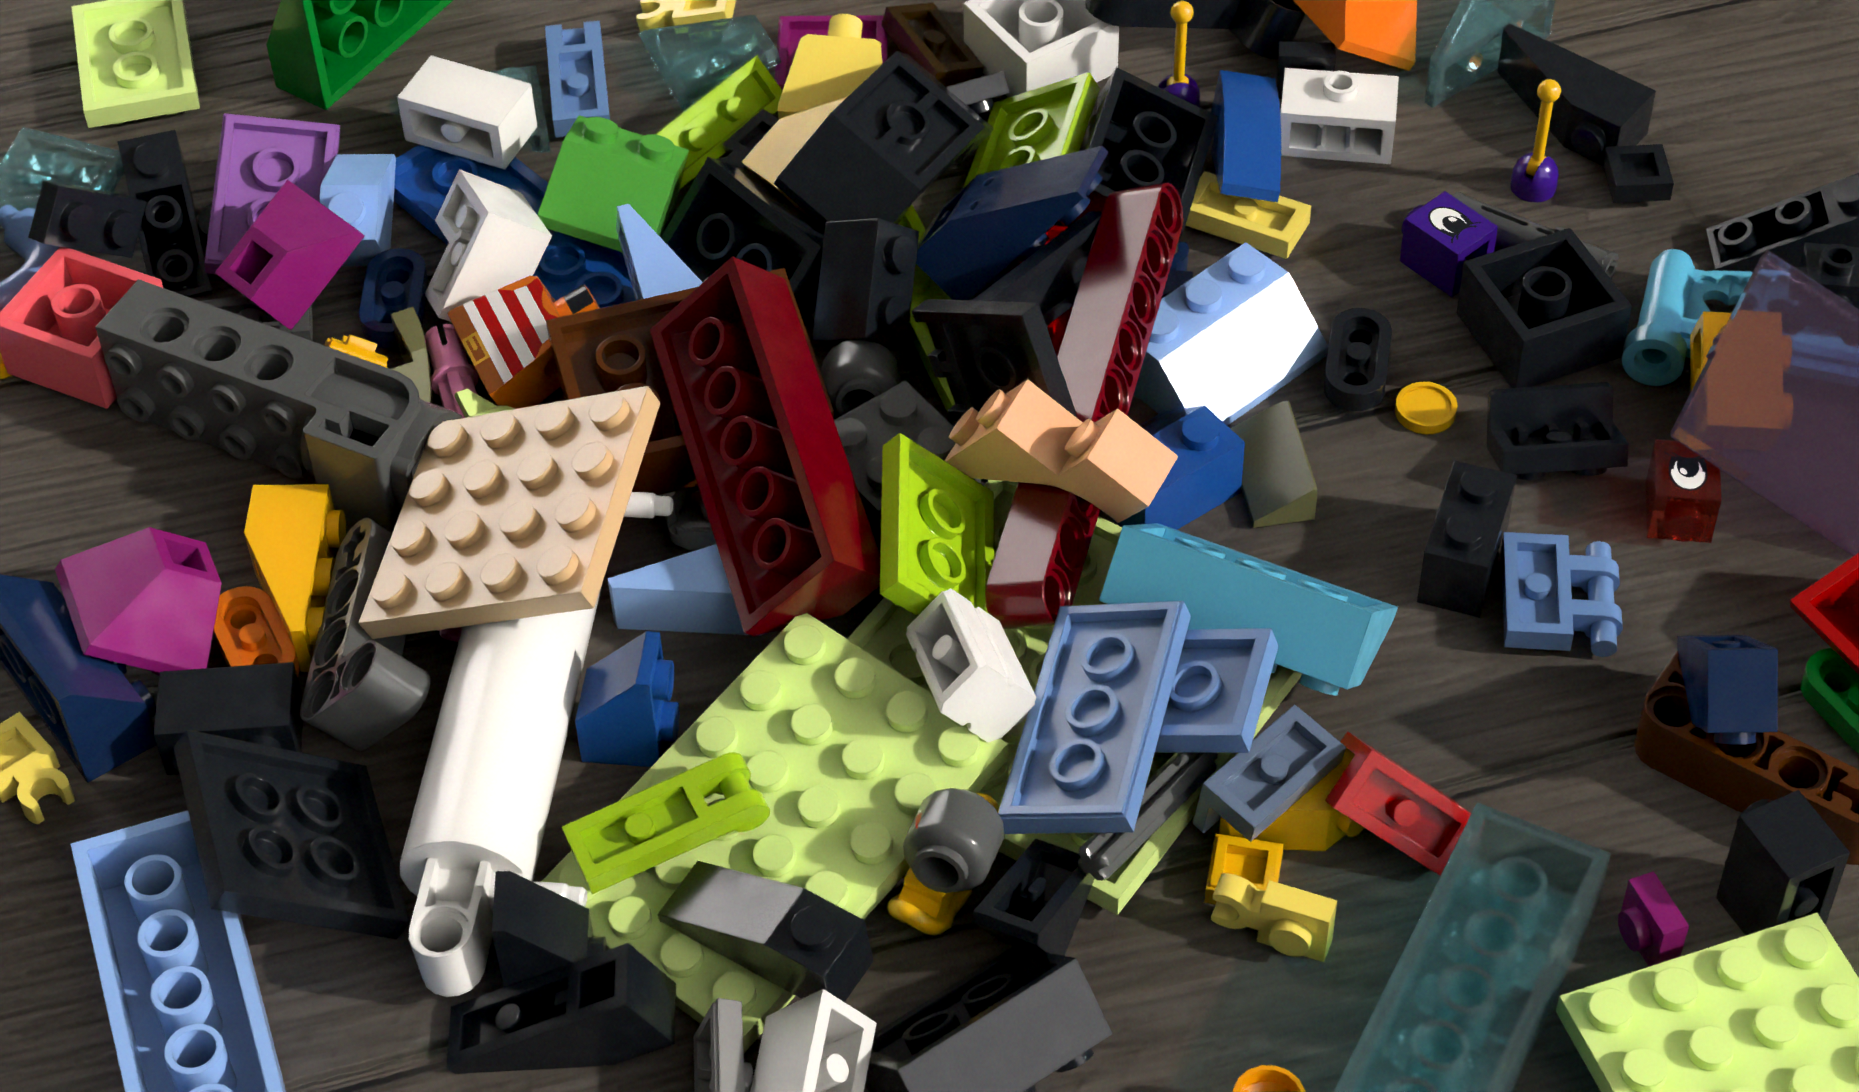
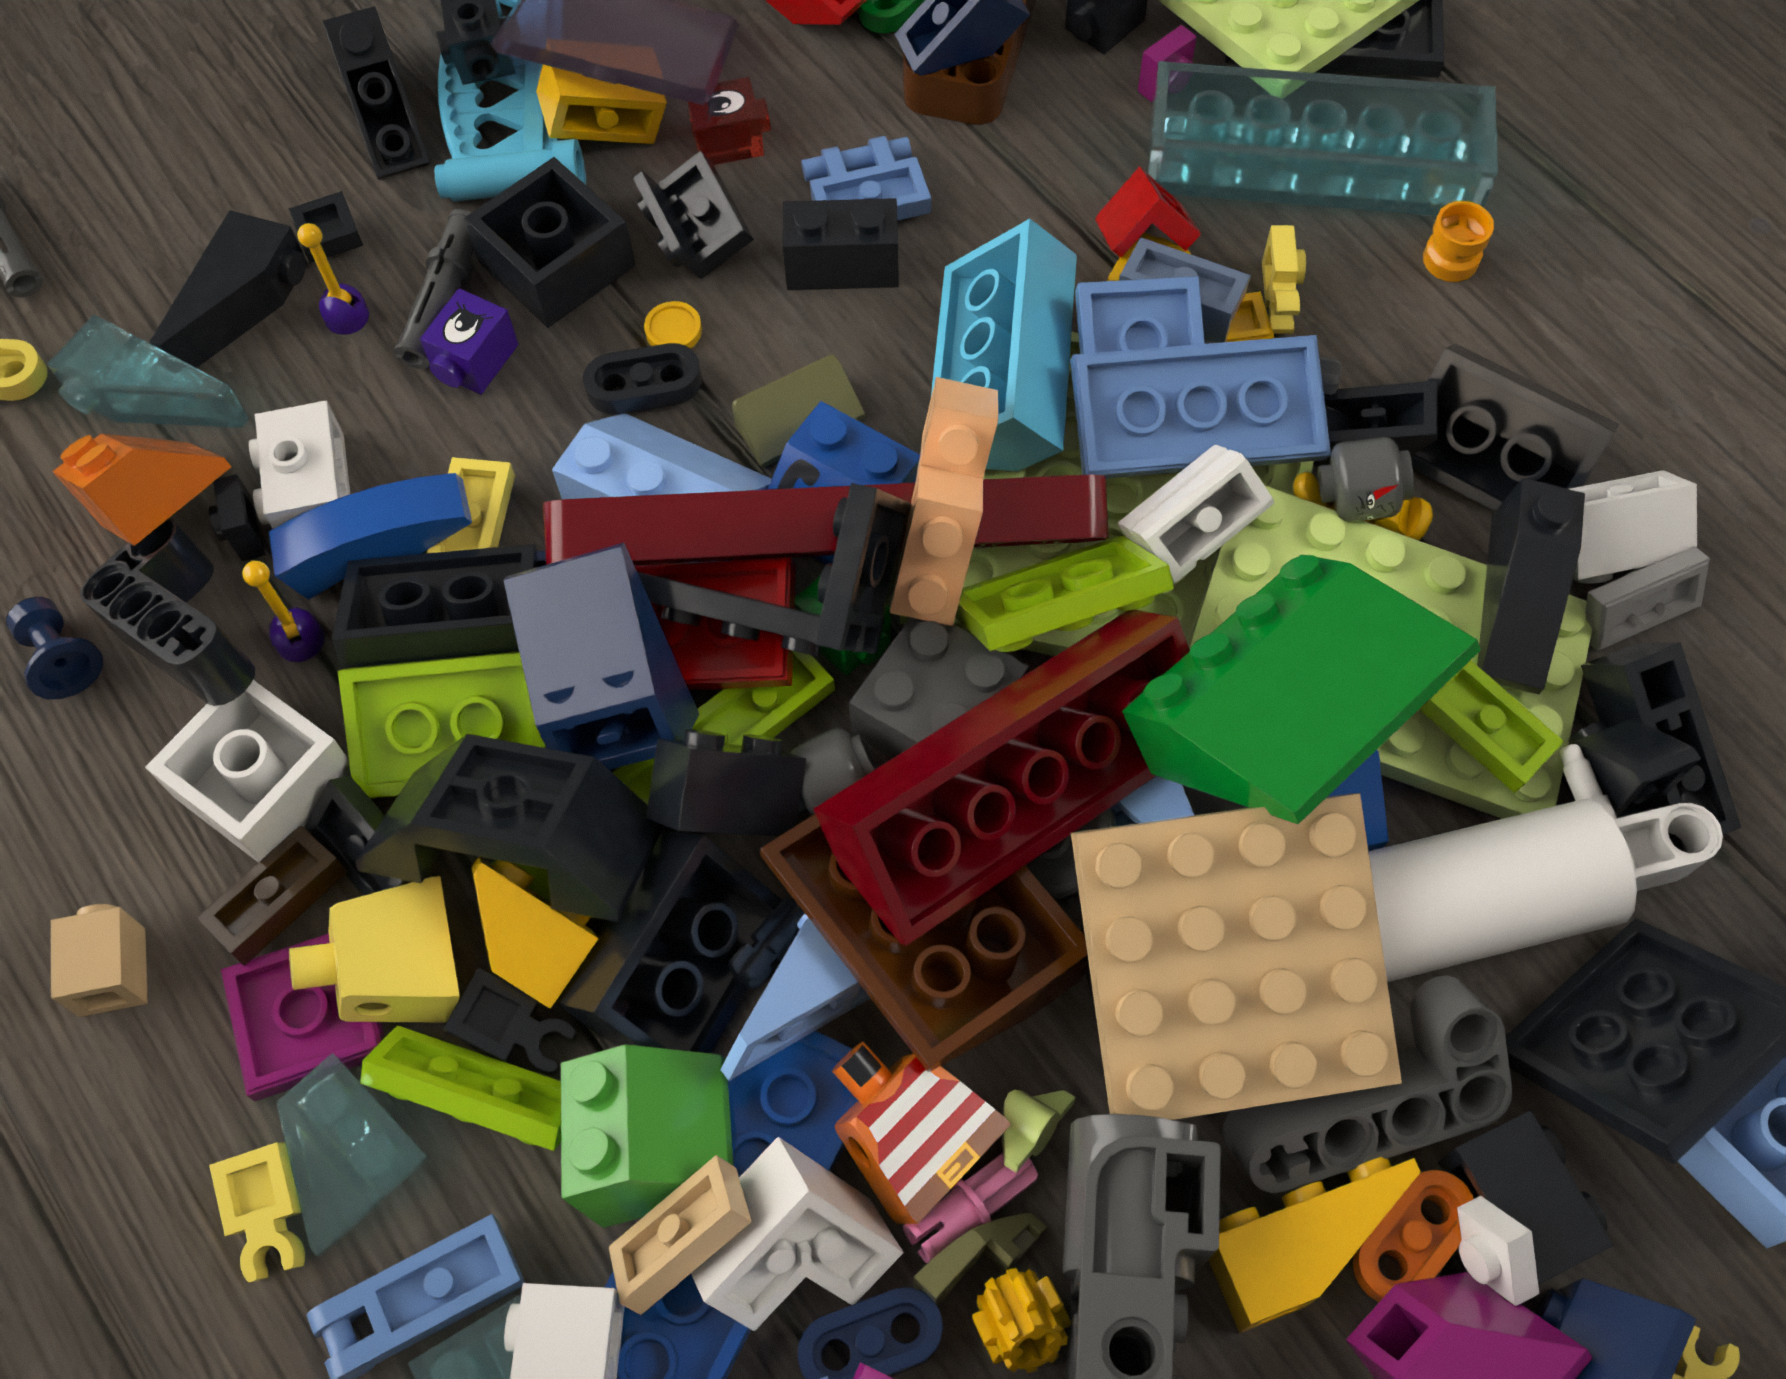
camera: 110 degrees left, 15 degrees up
(199, 649) = (1497, 1250): none -> white plate
(515, 172) = (679, 1235): none -> tan plate
(720, 617) = (1296, 688): none -> green slope

